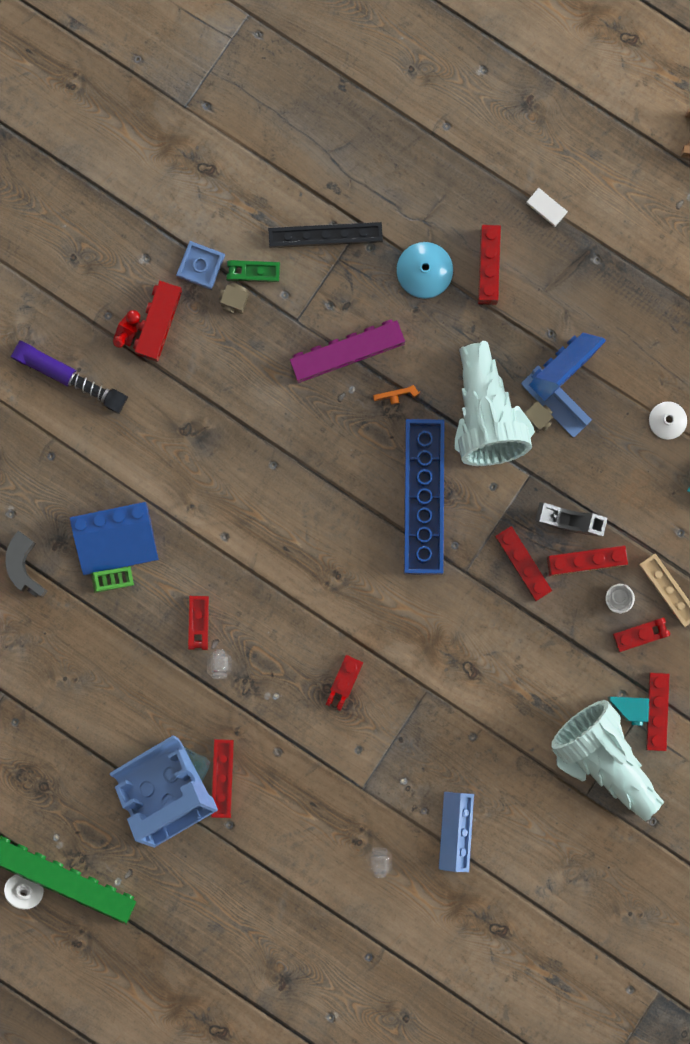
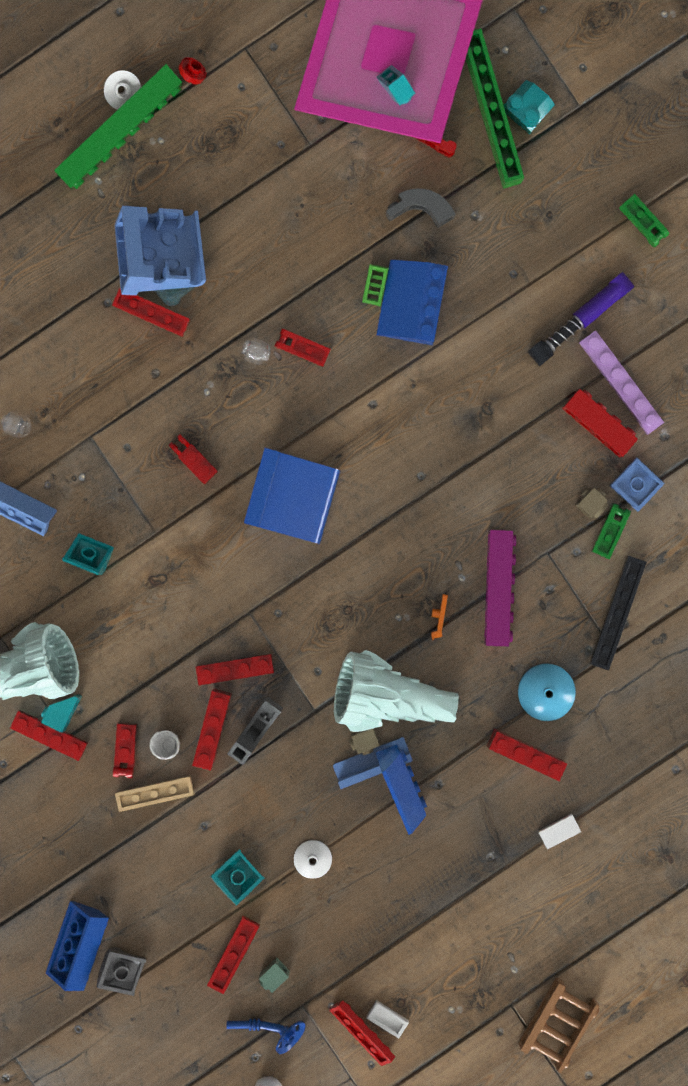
camera: 115 degrees right, 5 degrees up
(112, 316) = (621, 382): none -> lavender plate
(127, 329) = (603, 390): red piece -> none
(341, 575) = (292, 496): none -> blue panel
(424, 497) = (332, 603): blue brick -> none
(473, 743) = (89, 554): none -> teal slope

